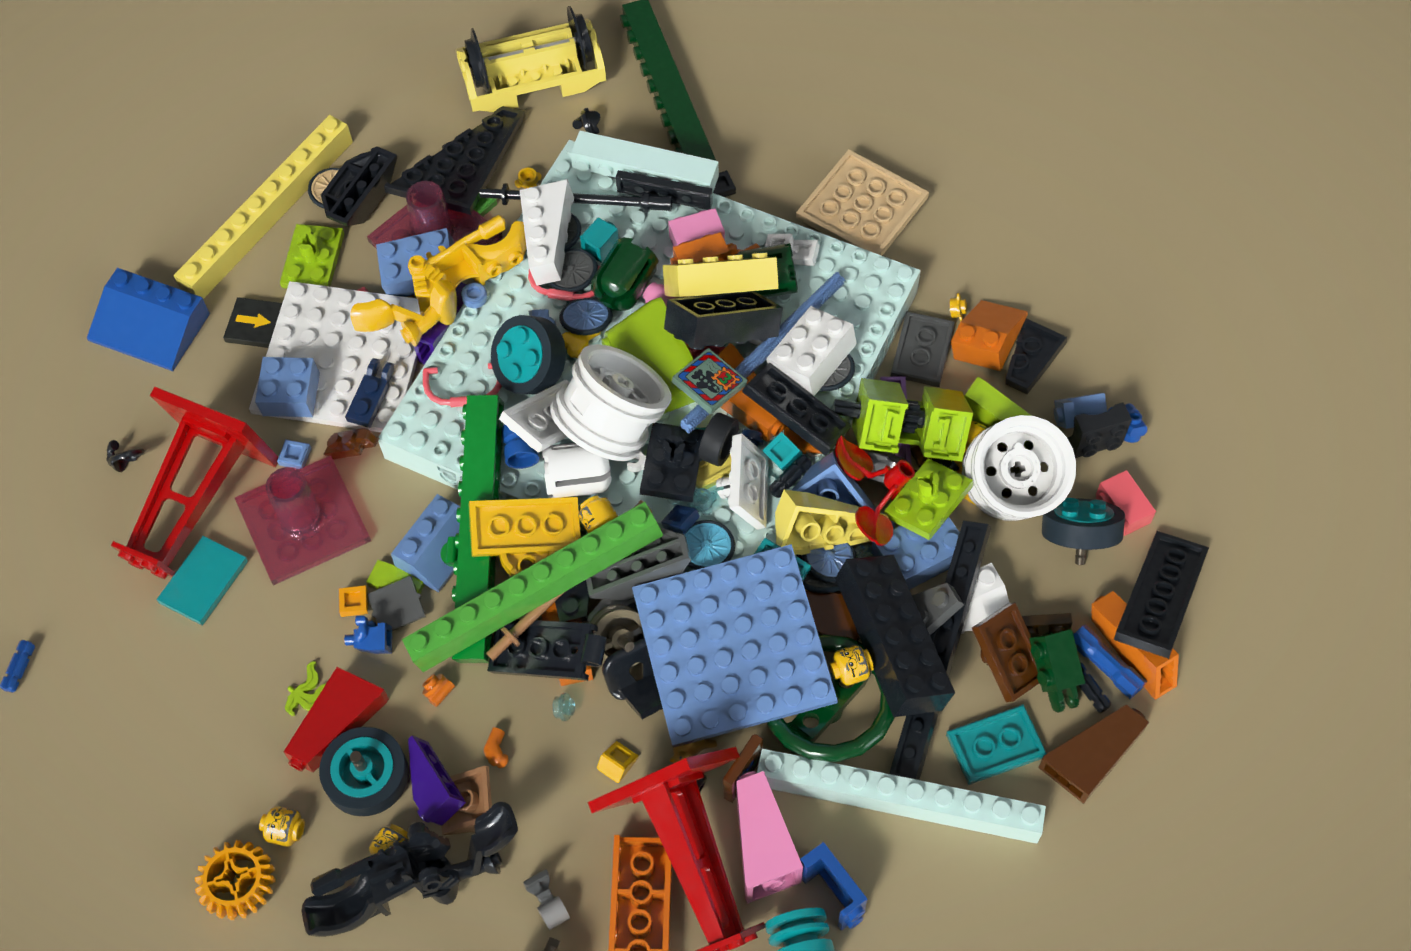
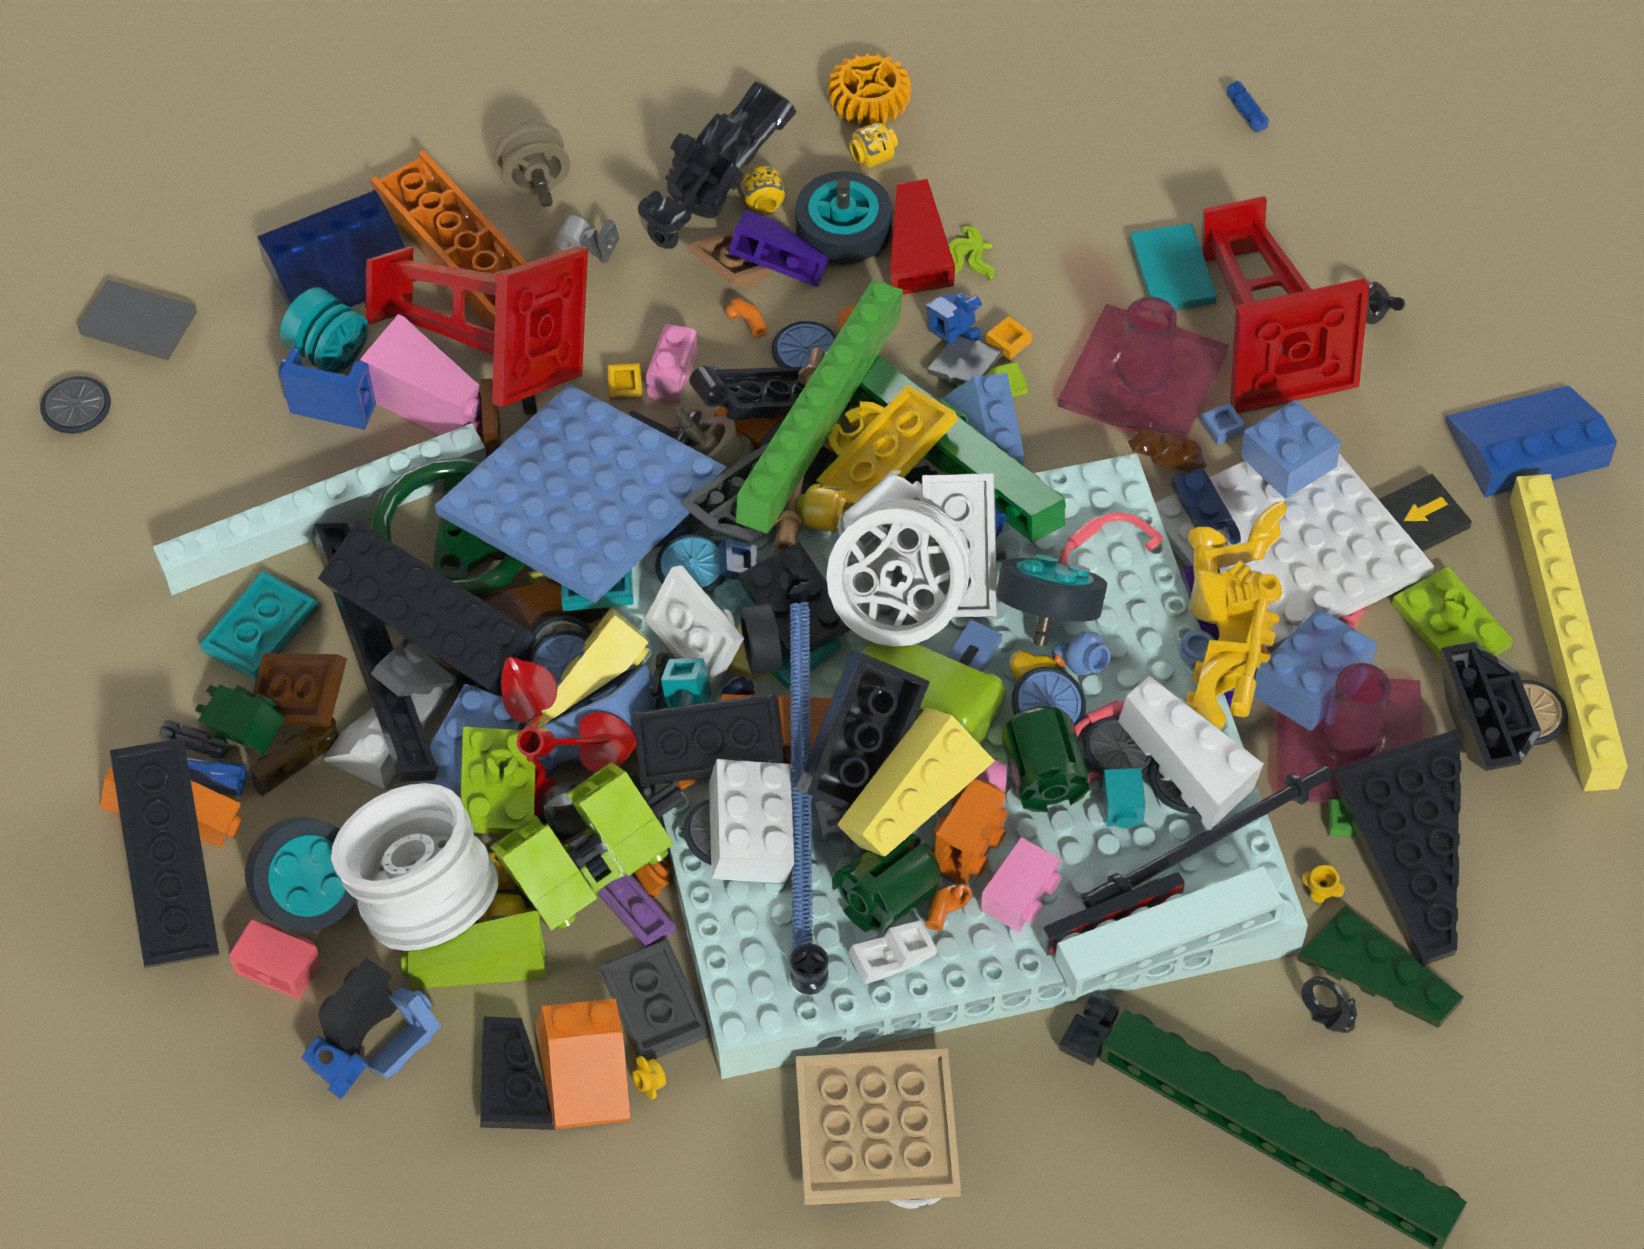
camera: 140 degrees right, 5 degrees down
(480, 697) = (795, 341): none -> medium blue wheel
(531, 63) = (1456, 1060): light yellow piece -> none
(543, 128) = (1367, 958): none -> dark green wing
(580, 739) = (671, 363): none -> bright pink brick
(709, 381) = (812, 661): tile -> none
(845, 262) = (809, 959): none -> black wheel
(851, 665) = (446, 547): yellow head -> none
(1091, 755) = (147, 672): reddish brown slope -> none

